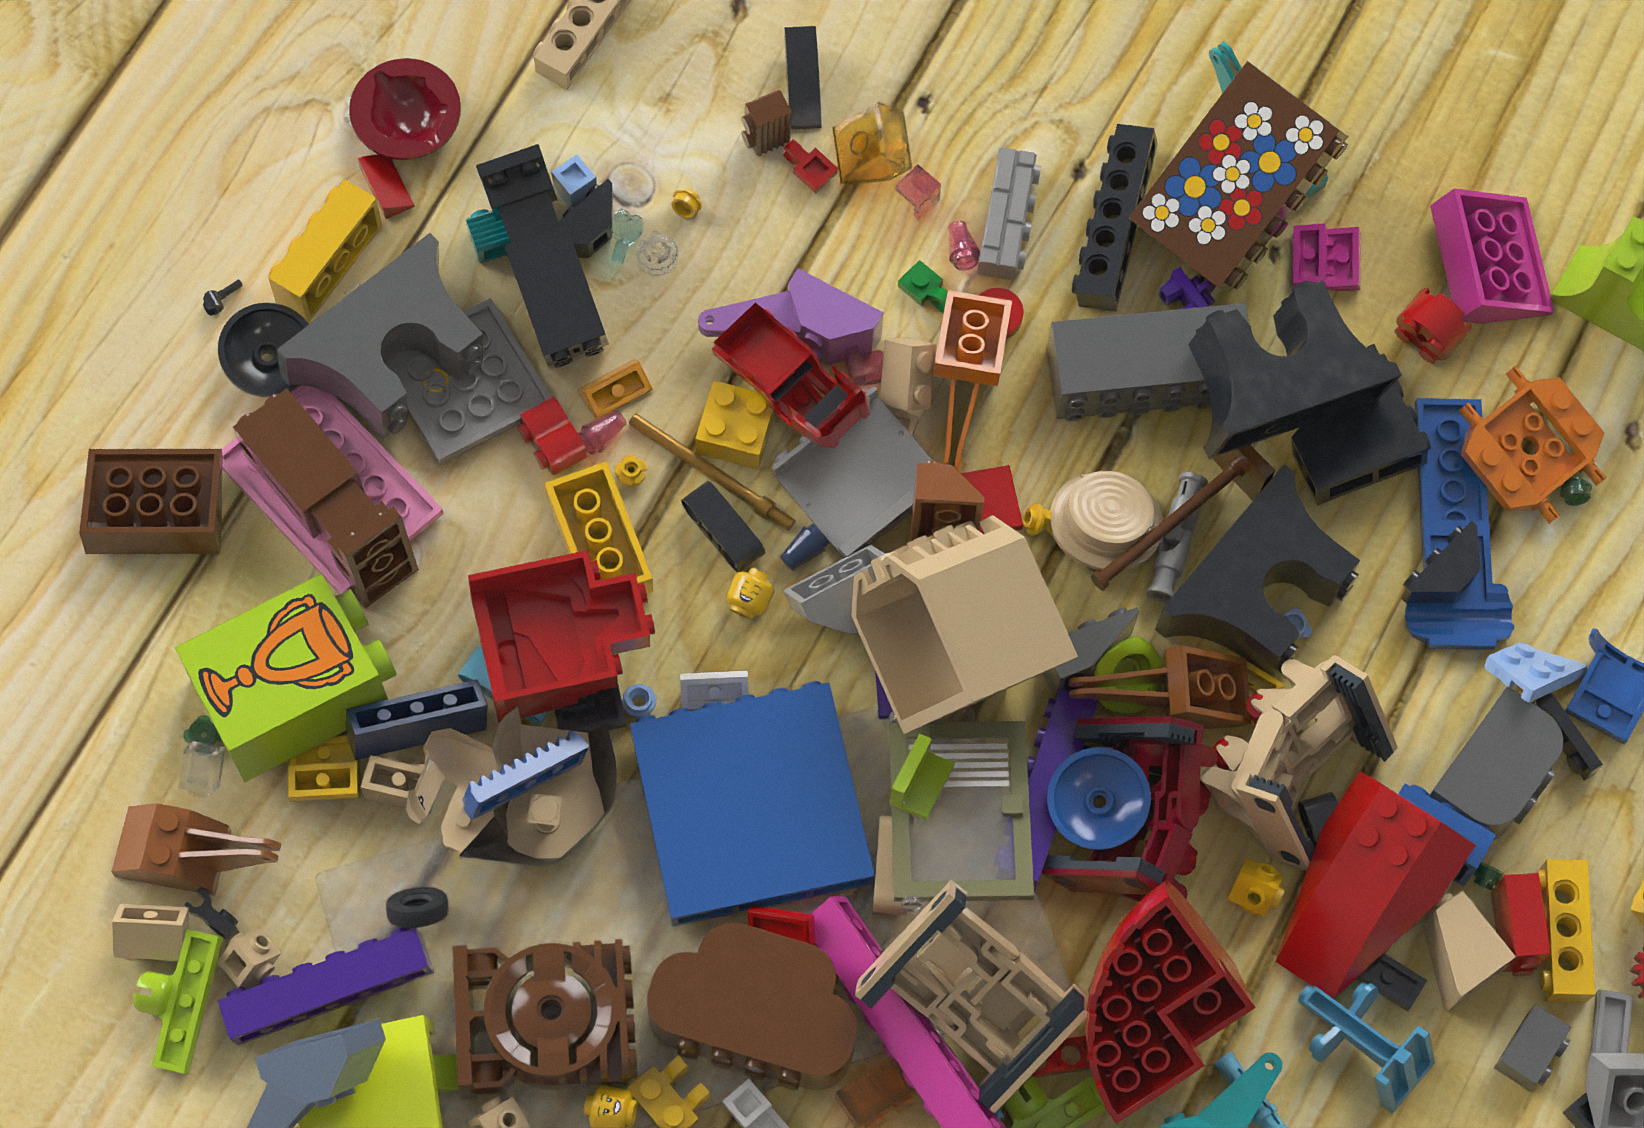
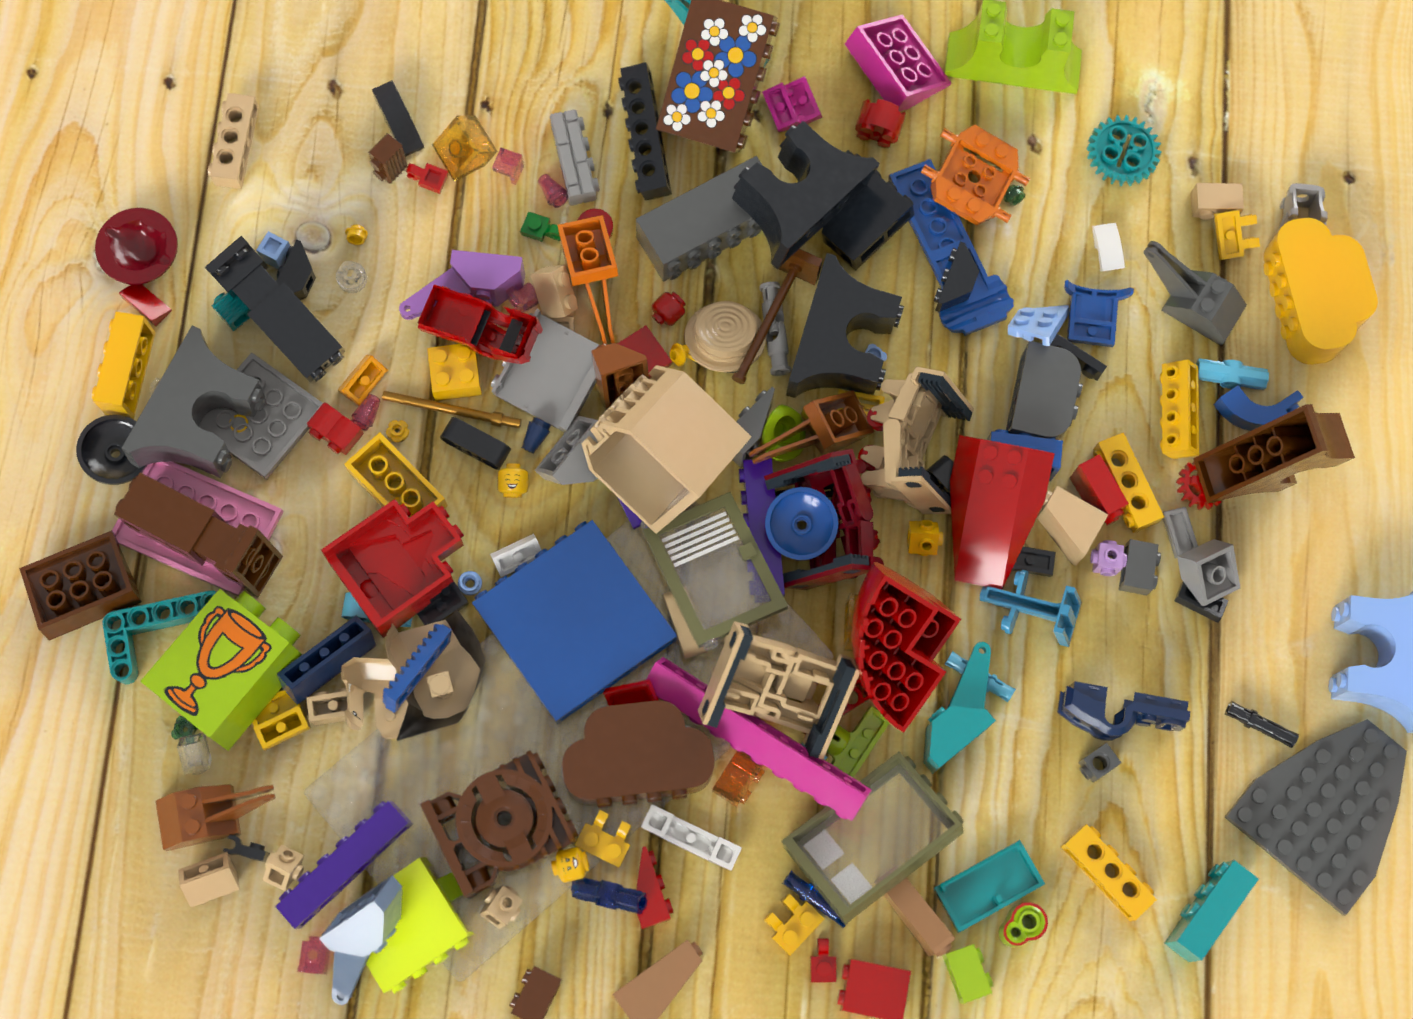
camera: 25 degrees left, 5 degrees up
(181, 1000) = (249, 916): lime plate -> none
(212, 298) = (60, 429): black hand -> none
(220, 585) = (153, 622): none -> teal beam
(238, 1099) = (315, 966): none -> clear pink brick
(417, 907) = (394, 785): black tyre -> none
(626, 231) = (324, 271): clear light blue rock -> none
(920, 779) = (681, 560): lime panel -> none
(1047, 455) = (668, 308): none -> red head
(1190, 292) = (715, 162): dark purple hips -> none
(1487, 876) = (1066, 469): clear green plate -> none
(1490, 1028) = (1103, 564): none -> lavender brick

